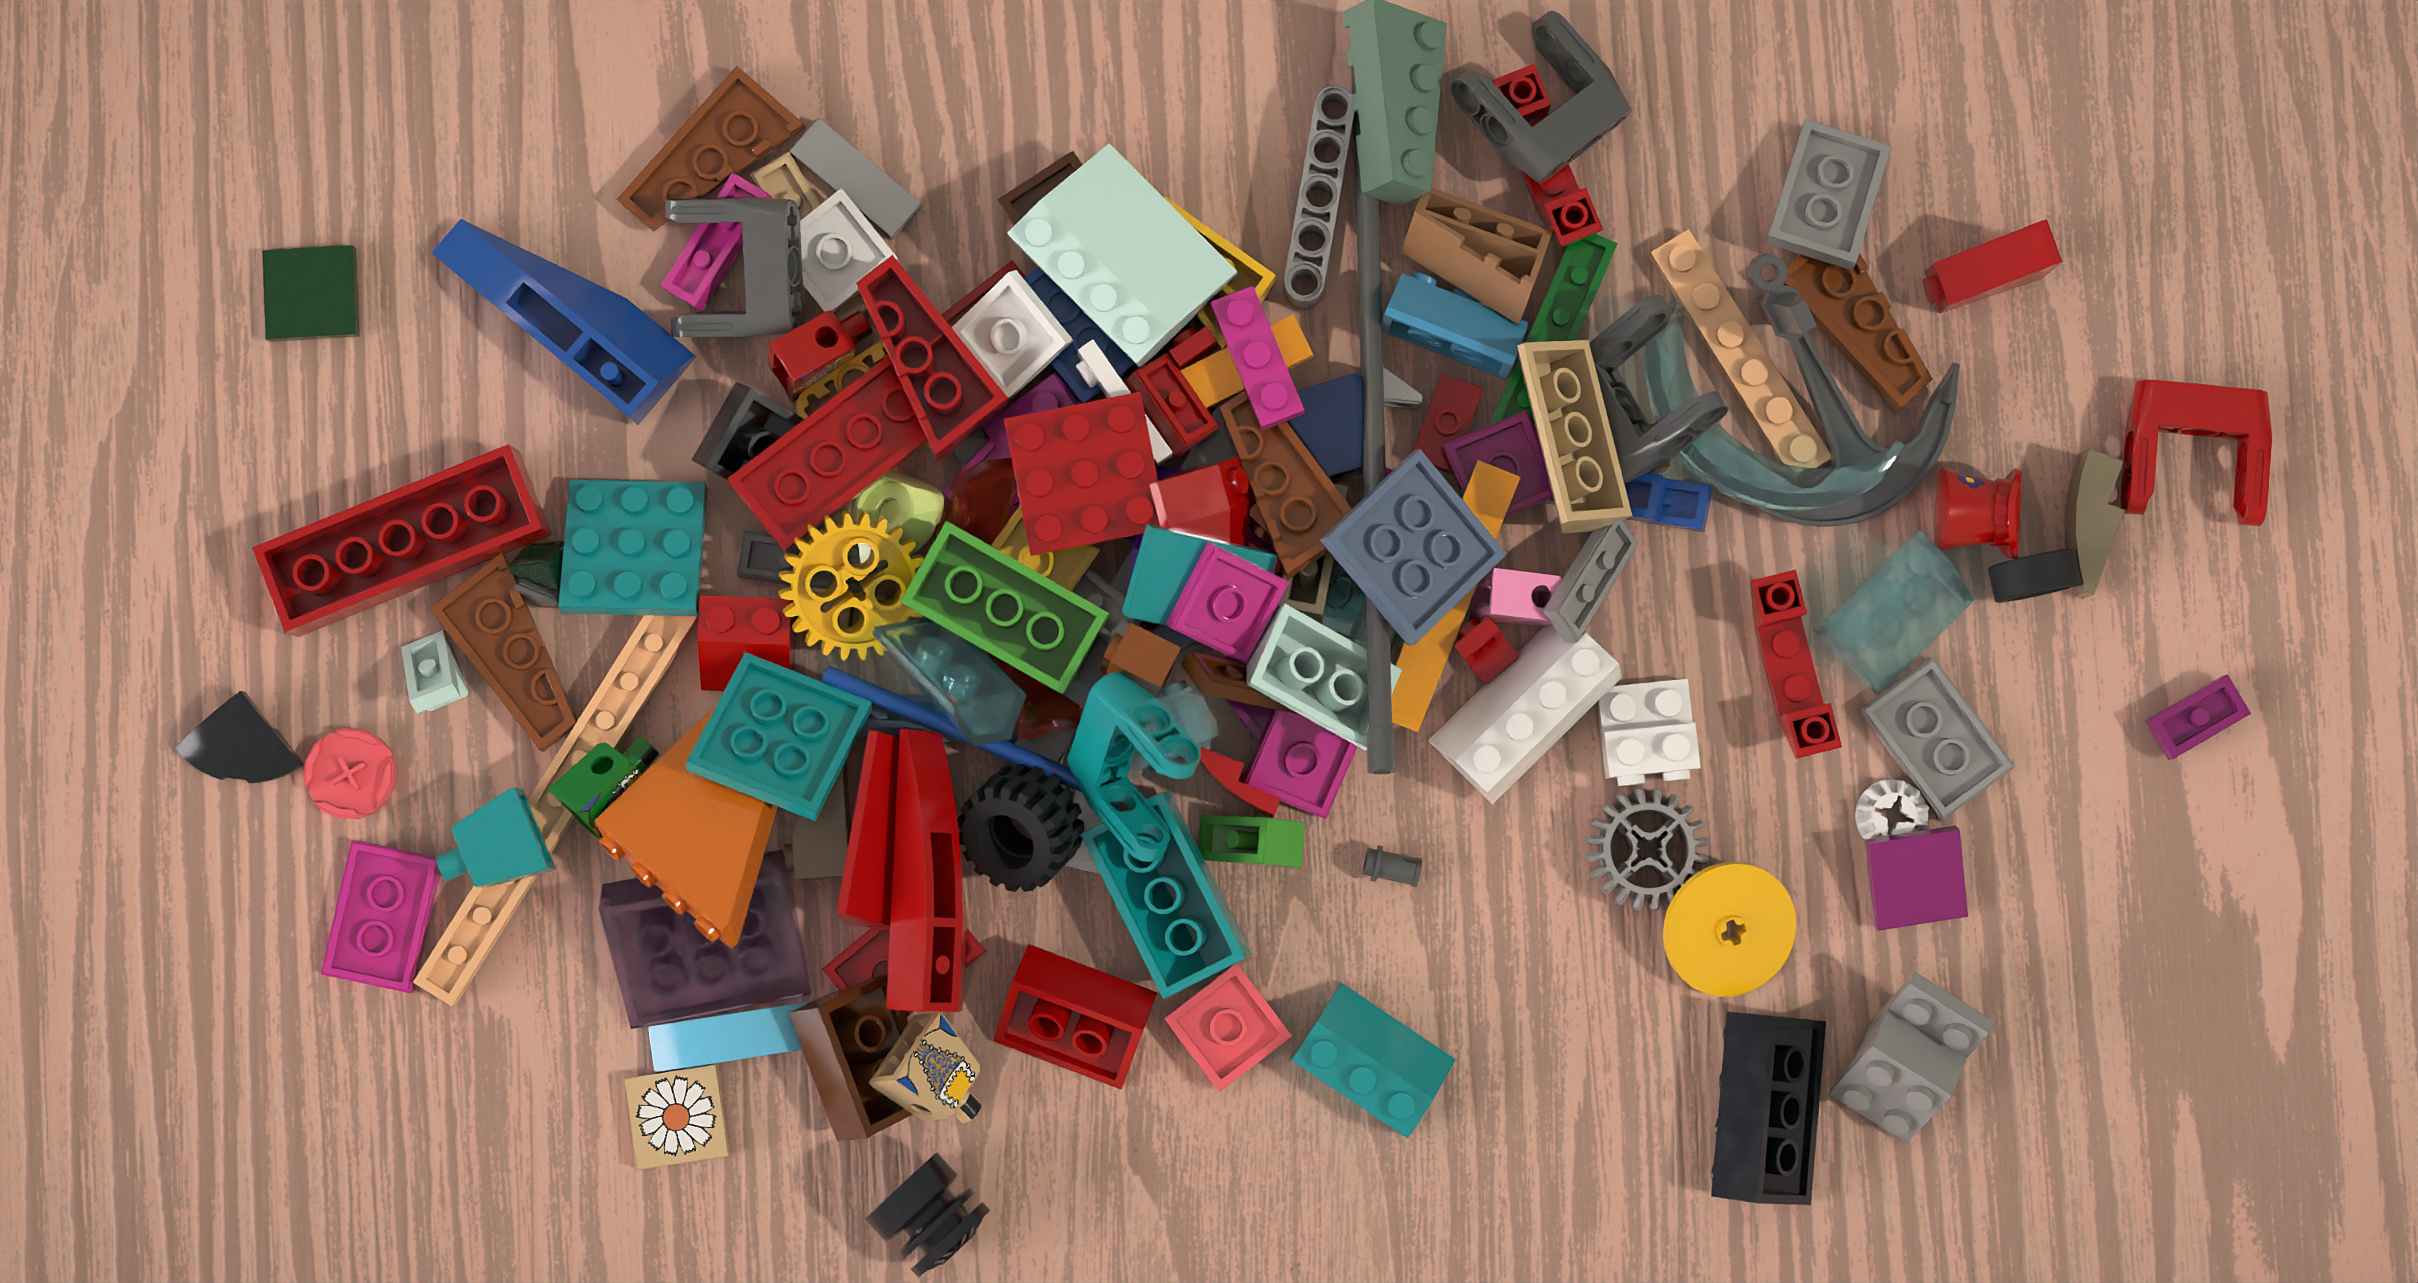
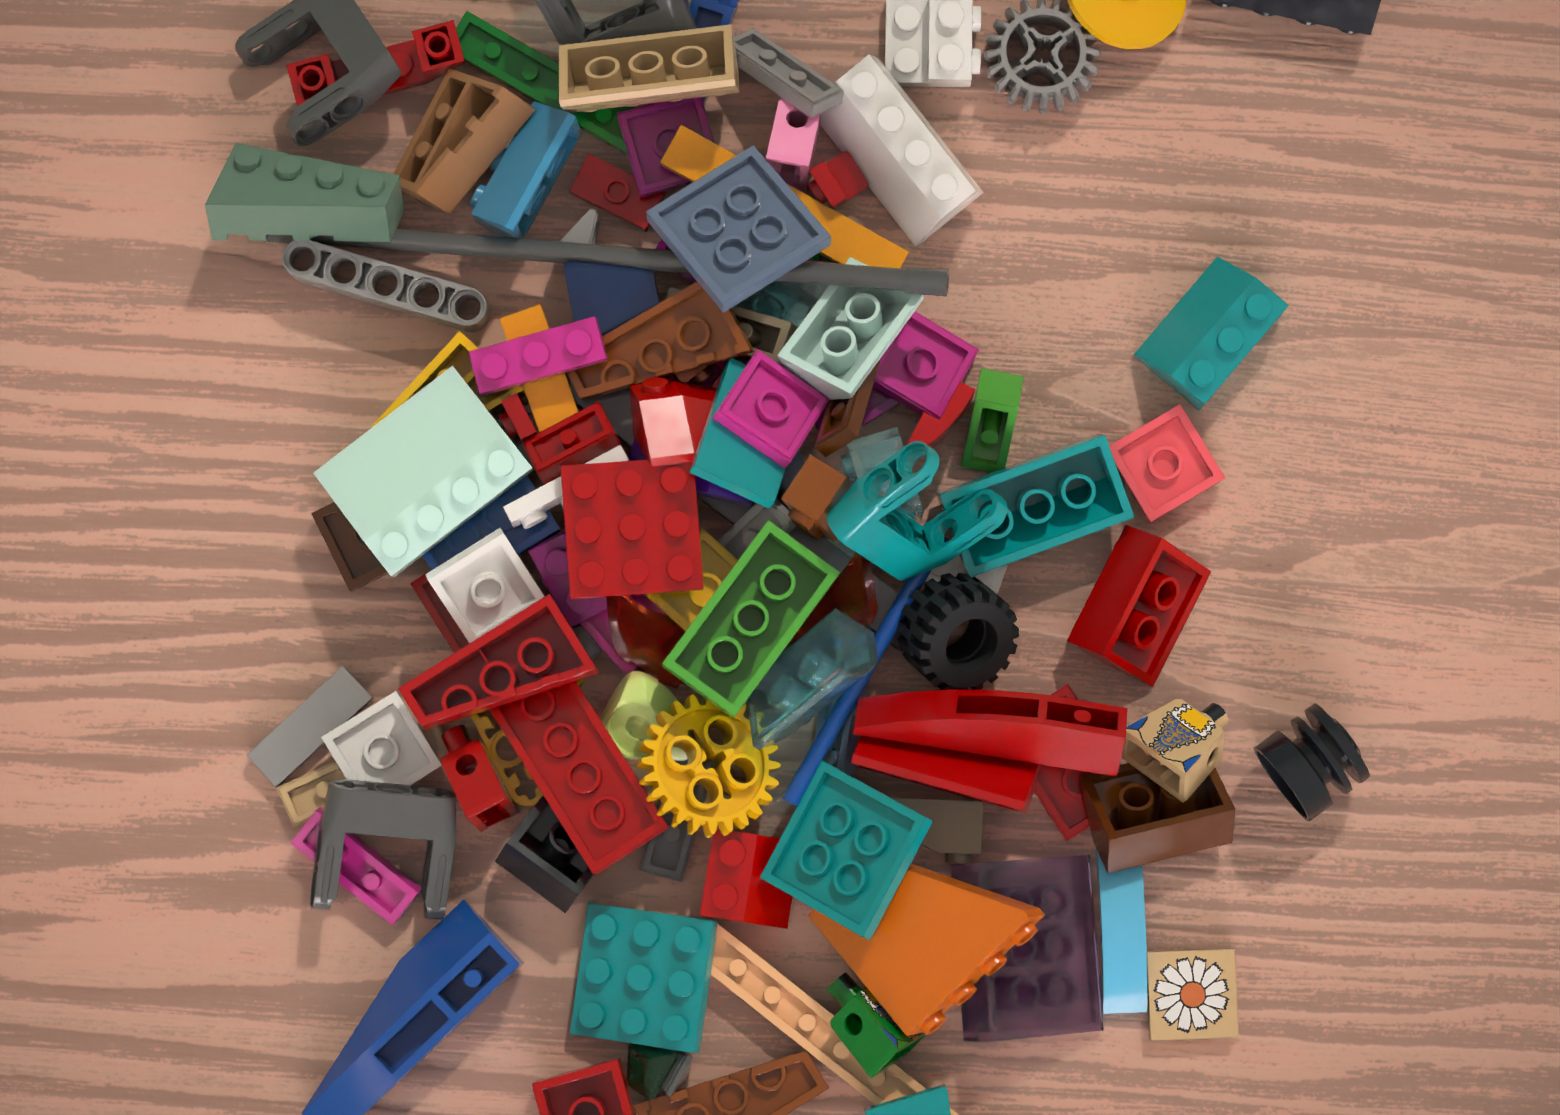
camera: 75 degrees left, 0 degrees up
(721, 137) = (258, 855): dark orange wing -> none
(1392, 866) = (1031, 293): dark grey pin -> none

